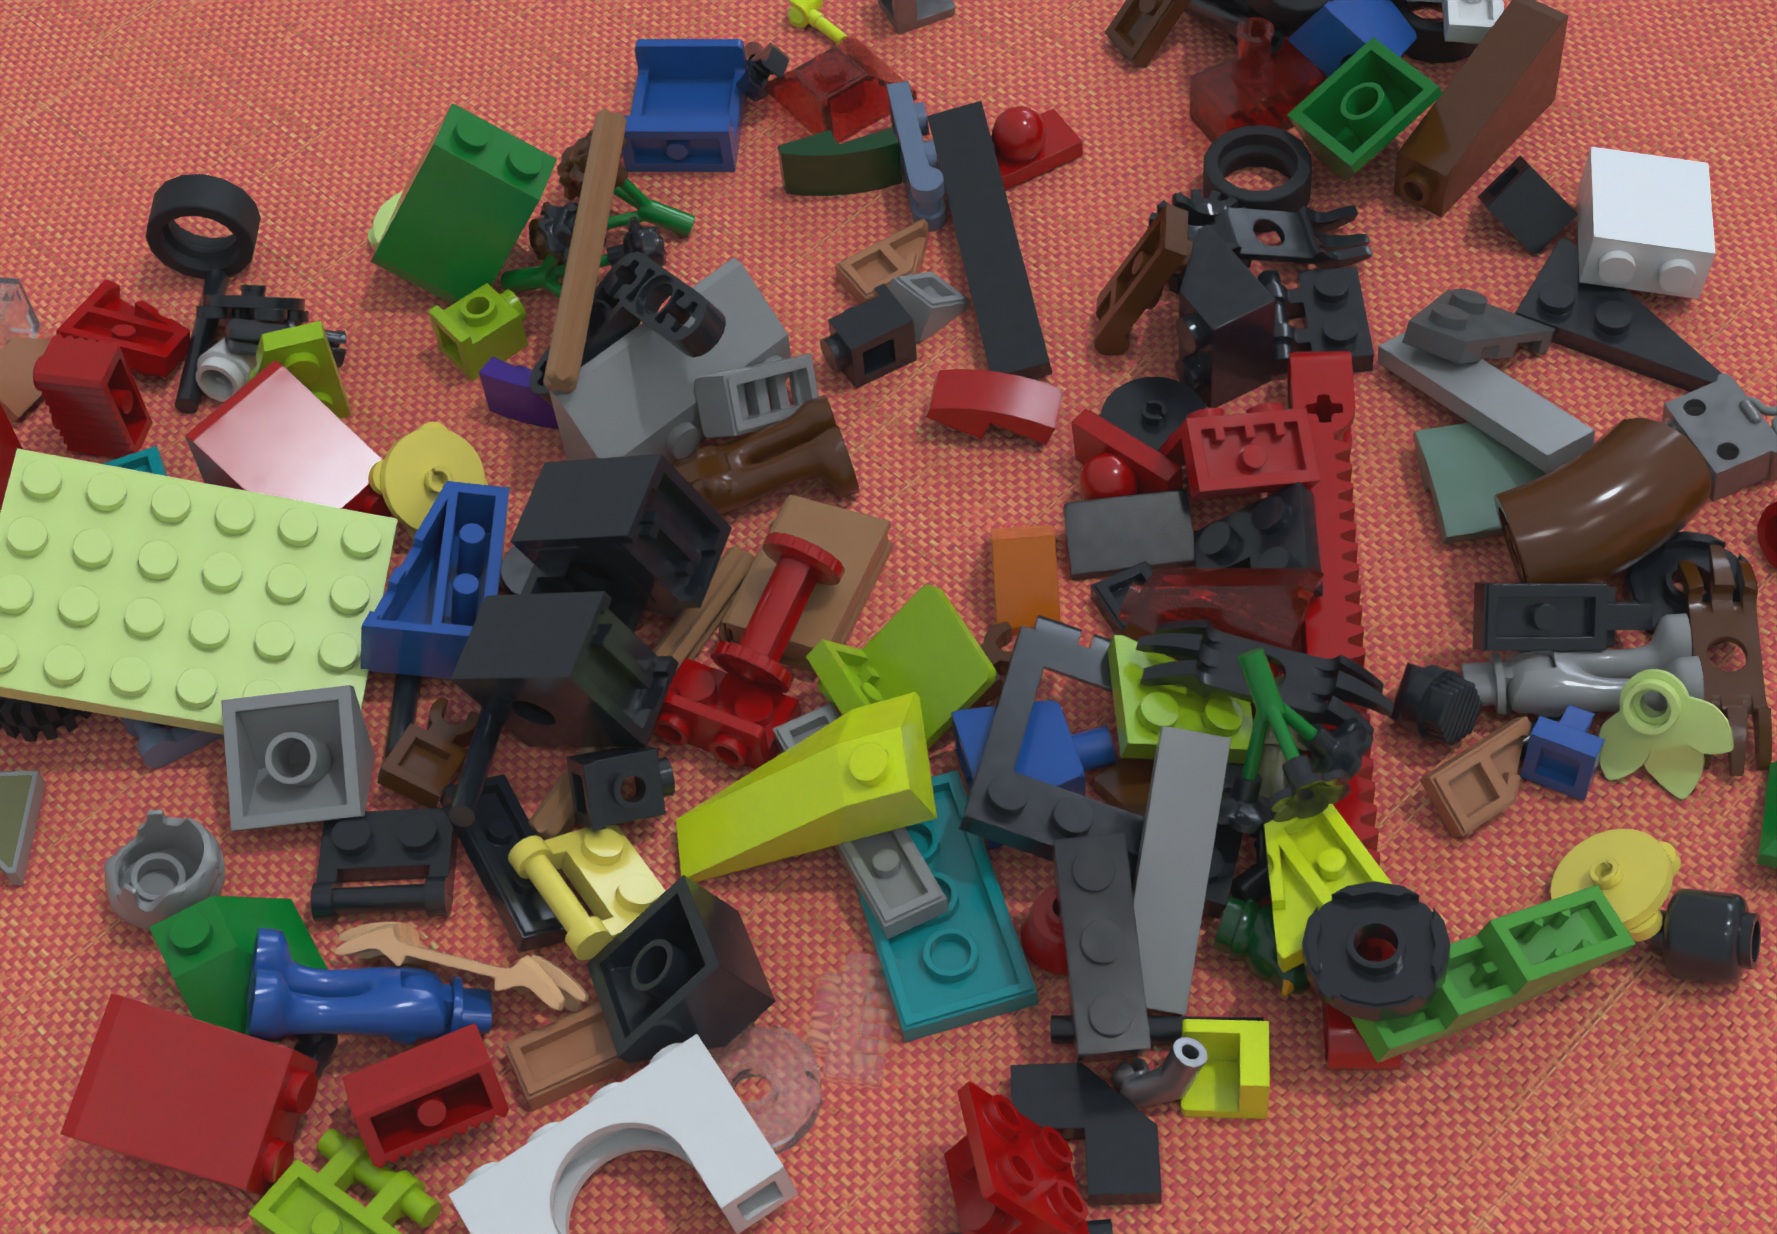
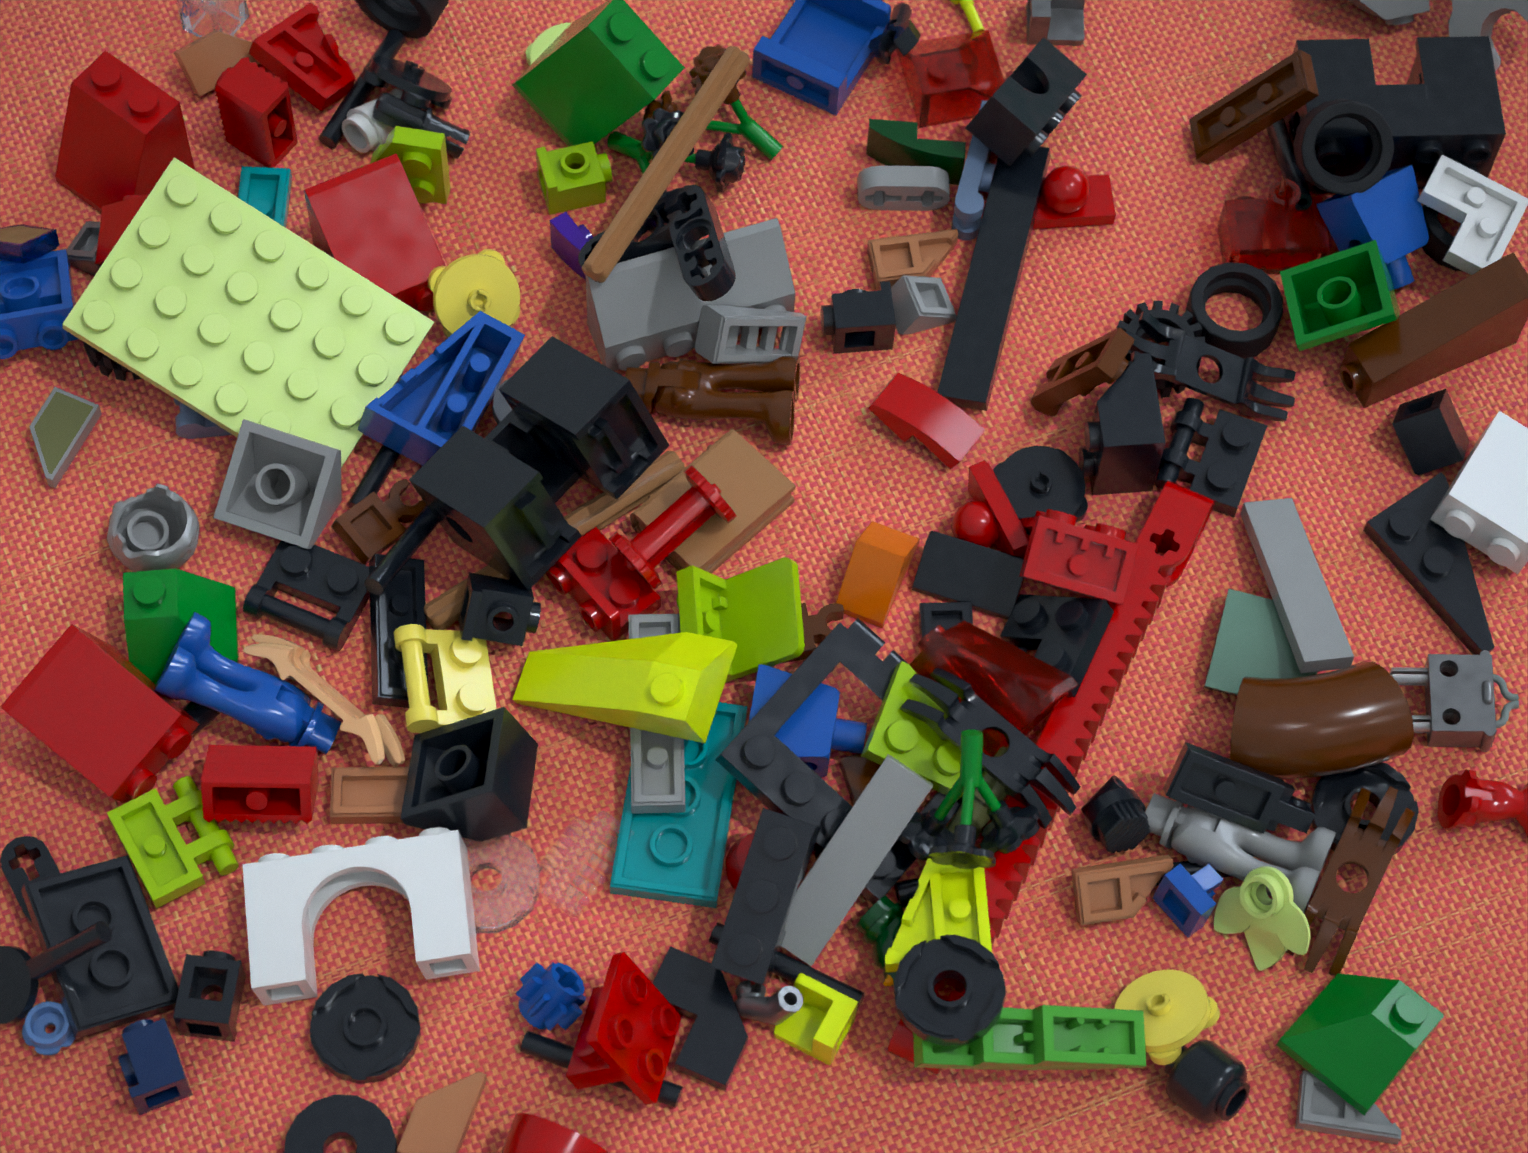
camera: 15 degrees right, 10 degrees up
(845, 202) = (903, 188): none -> light grey beam
(900, 1182) = (551, 996): none -> blue gear
(938, 66) = (1028, 103): none -> black arch
(1468, 329) = (1321, 522): dark grey wing -> none

